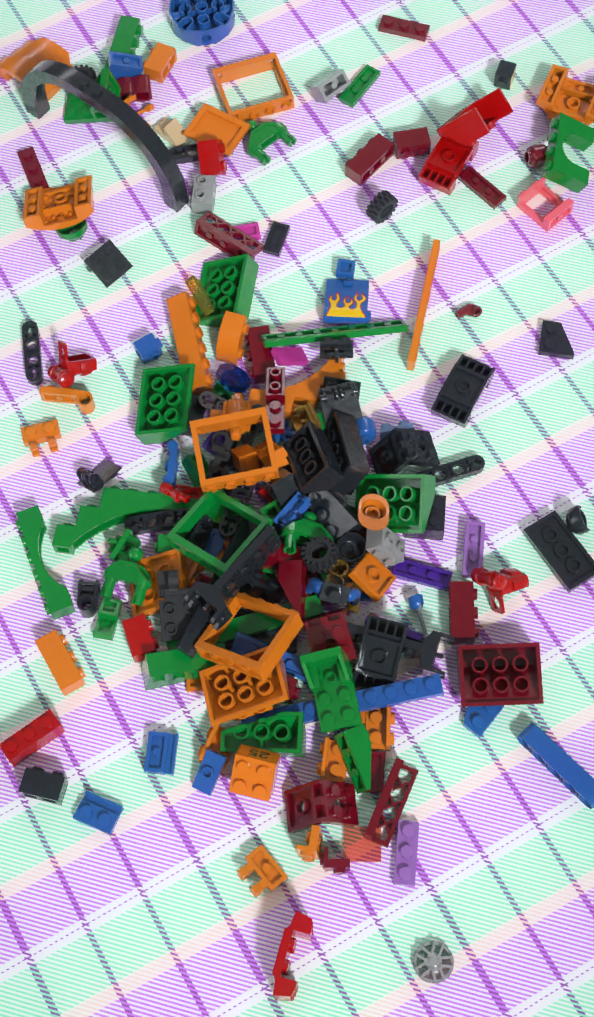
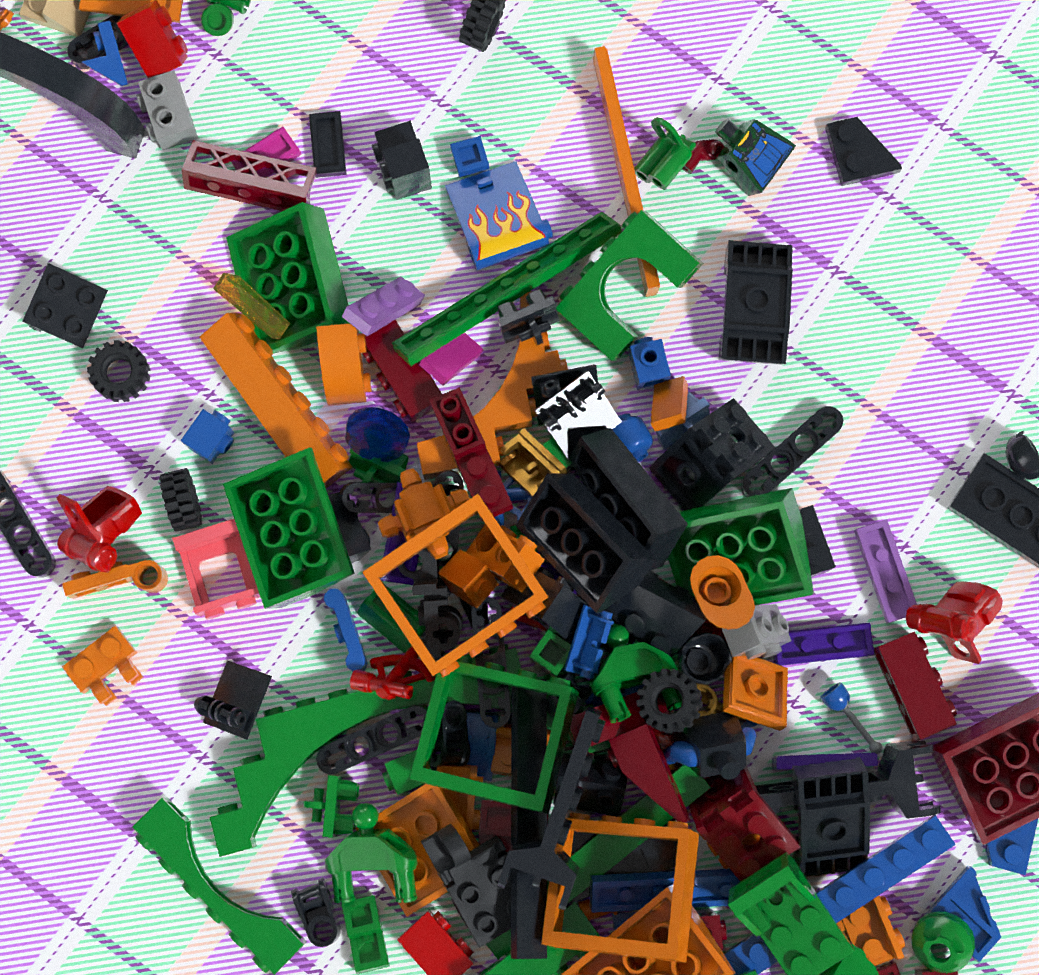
camera: 30 degrees left, 15 degrees up
(117, 294) = (112, 353): none -> black tyre
(119, 370) = (180, 499): none -> black tyre
(119, 399) = (208, 544): none -> coral window
(185, 162) = (111, 64): none -> blue slope
(249, 163) = (217, 19): none -> green tile
(265, 317) = (383, 306): none -> medium lavender plate
(309, 258) = (403, 159): none -> black brick
(373, 355) = (586, 302): none -> green arch
(392, 399) = (648, 362): none -> blue brick
(392, 419) = (669, 403): none -> orange tile
(424, 750) = (947, 930): none -> green piece
(436, 743) = (967, 902): none -> blue wing
(447, 304) = (665, 156): none -> green piece
(494, 317) = (752, 153): none -> torso

